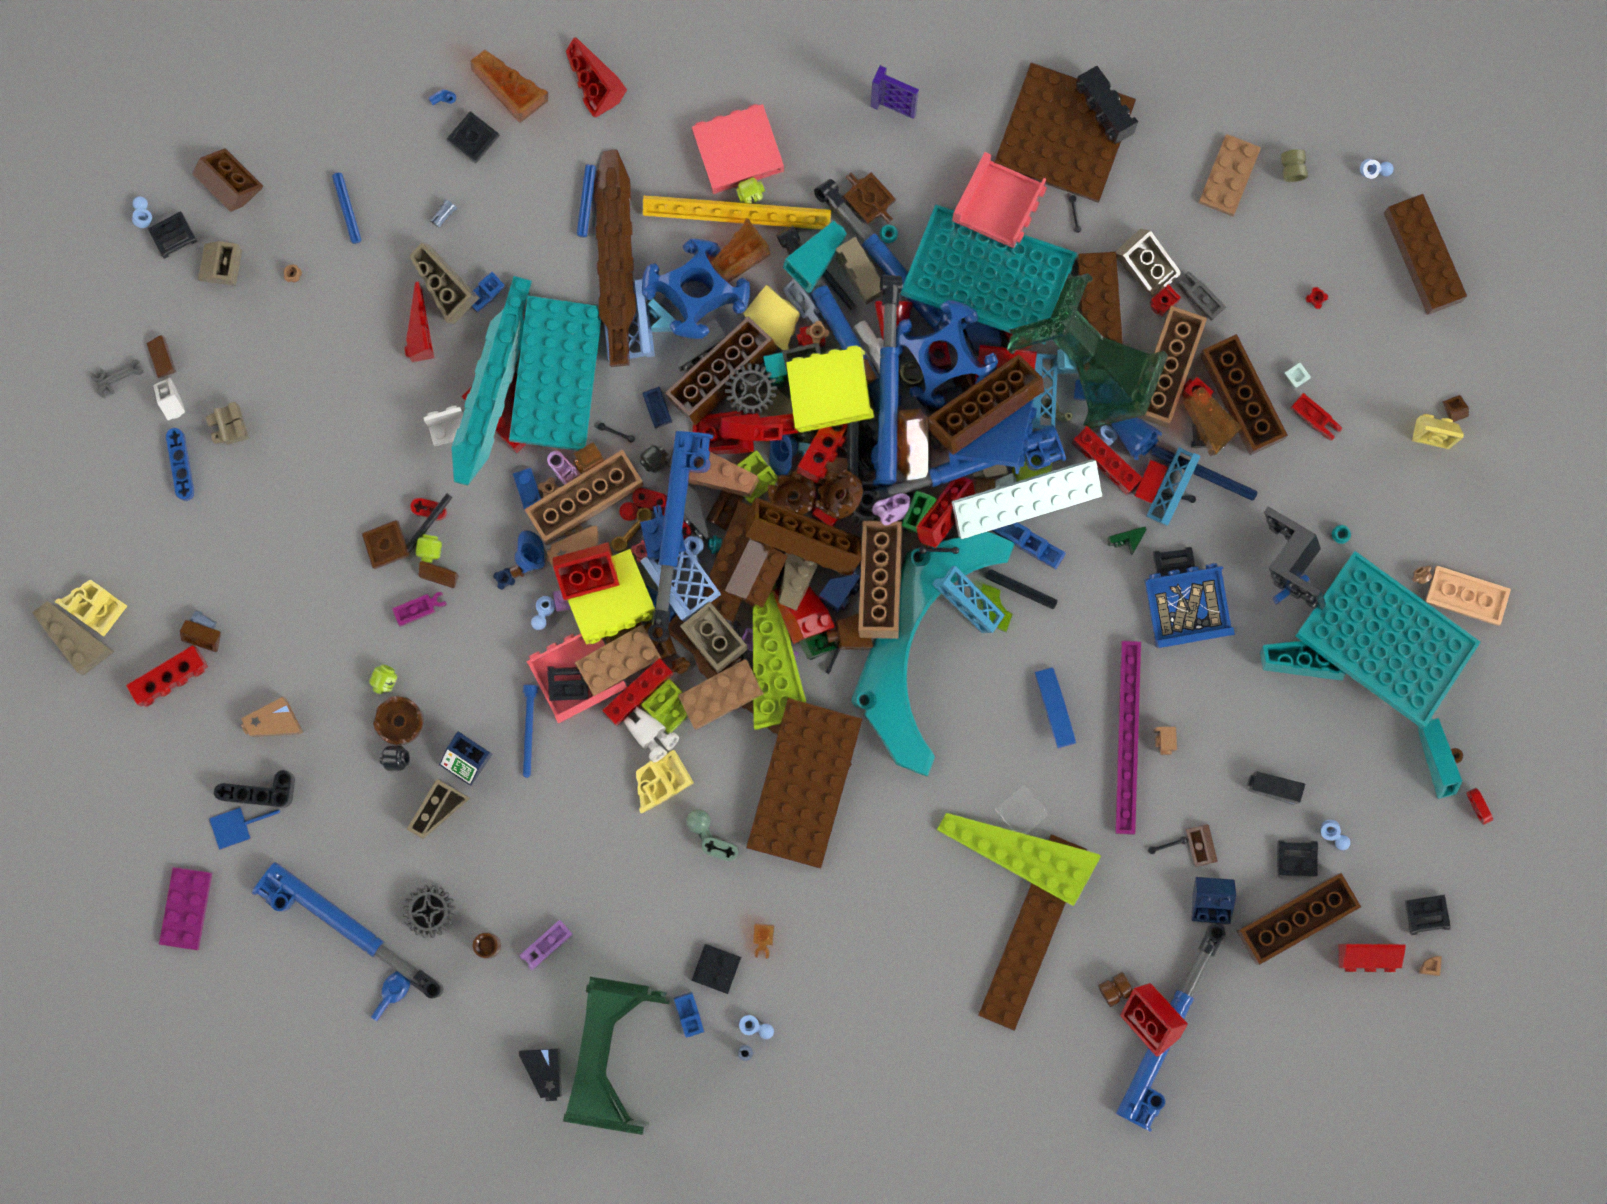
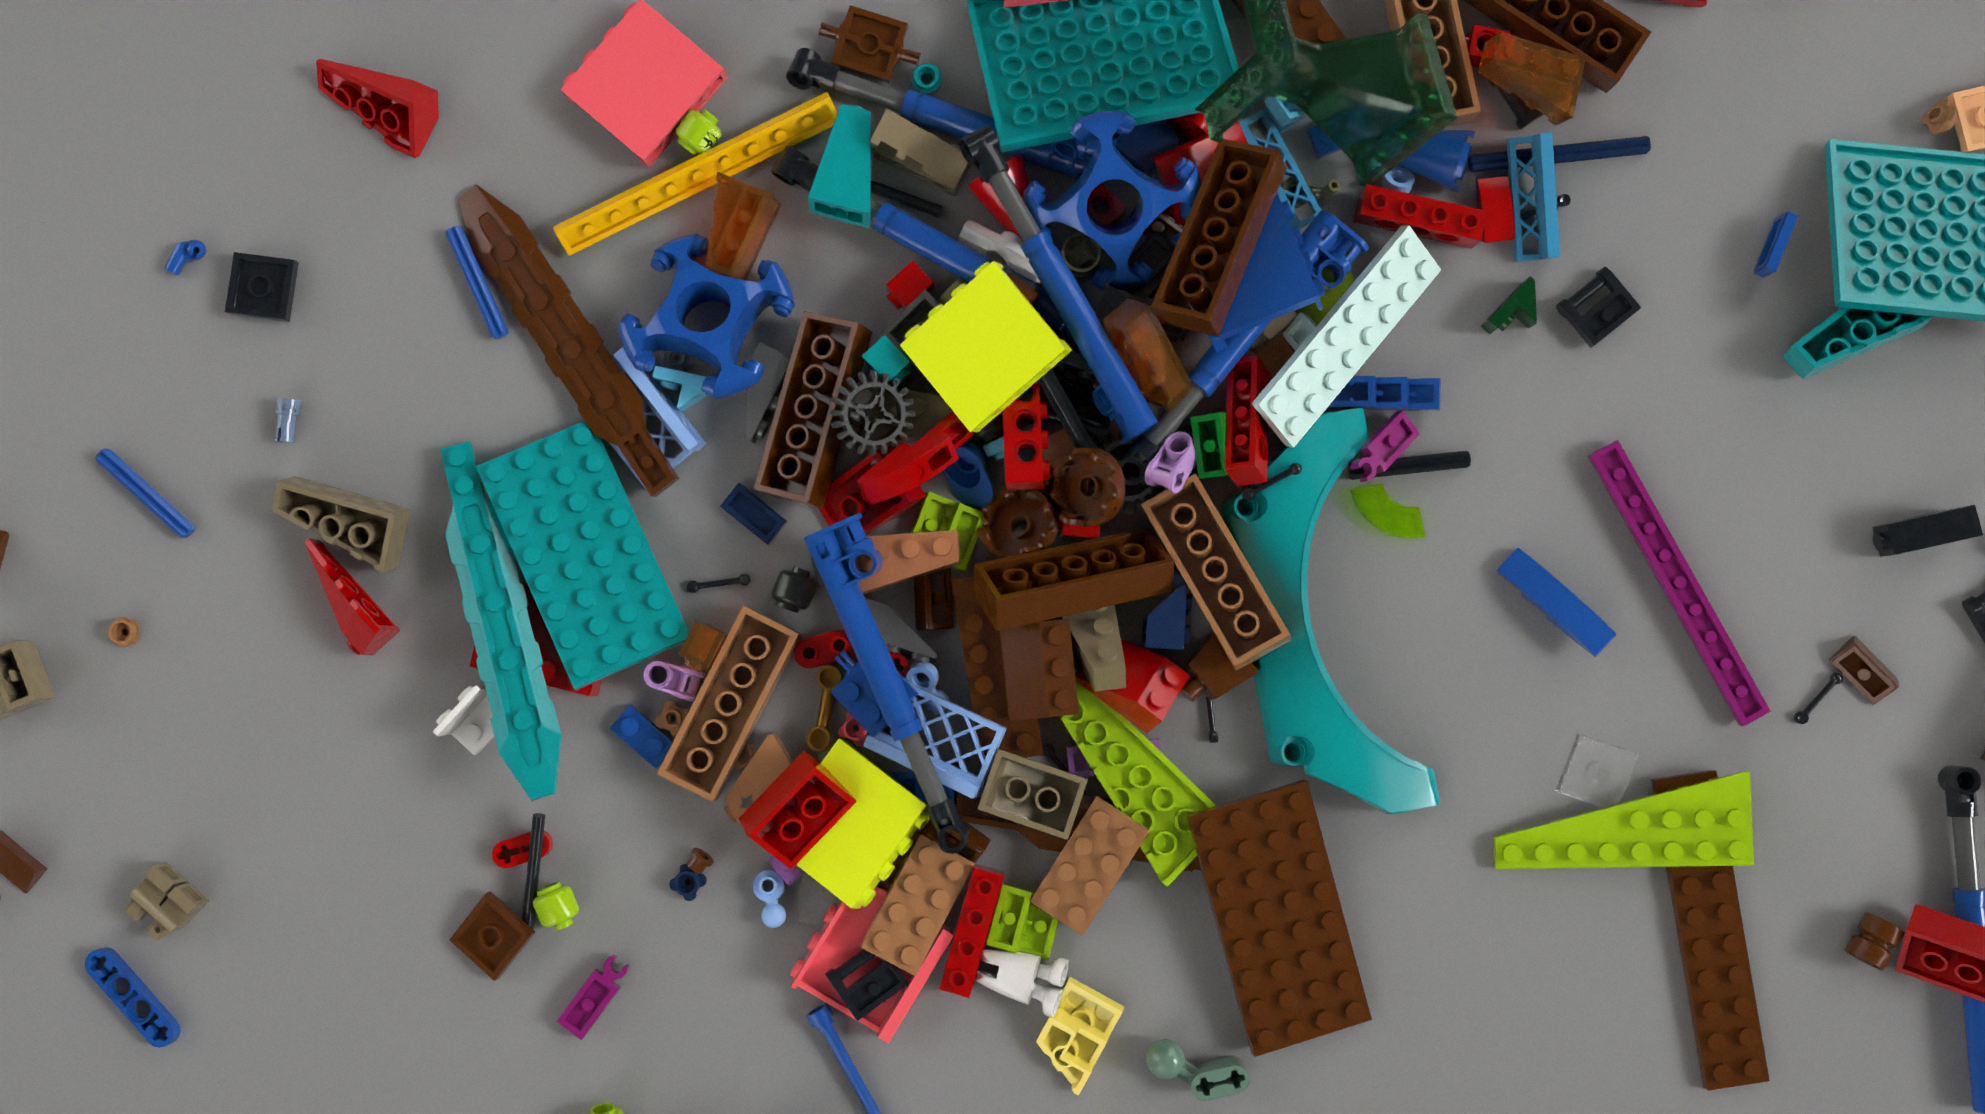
camera: 30 degrees left, 5 degrees up
(169, 399) = (58, 916): white slope -> none
(437, 574) = (591, 932): reddish brown slope -> none
(487, 291) = (415, 492): blue slope -> none
(514, 91) = (278, 187): clear orange wedge -> none
(529, 552) = (700, 824): blue piece -> none
(628, 511) = (803, 683): red plate -> none
(680, 665) = (1007, 856): reddish brown plate -> none
(714, 544) = (951, 658): teal plate -> none
(774, 316) = (839, 289): light yellow slope -> none
(803, 302) = (868, 245): sand blue hinge -> none
(817, 327) = (910, 267): medium nougat plate -> none
(817, 646) = (1181, 717): dark green slope -> none
(964, 605) = (1351, 536): dark azure fence -> none
(1014, 569) = (1386, 445): none -> magenta plate
(1166, 740) = (1733, 554): medium nougat brick -> none
(1188, 606) = (1653, 353): panel -> none
(1213, 900) = (1929, 736): dark blue slope -> none
(1294, 558) = (1767, 217): black bracket -> none
(1341, 528) = (1802, 123): teal plate -> none

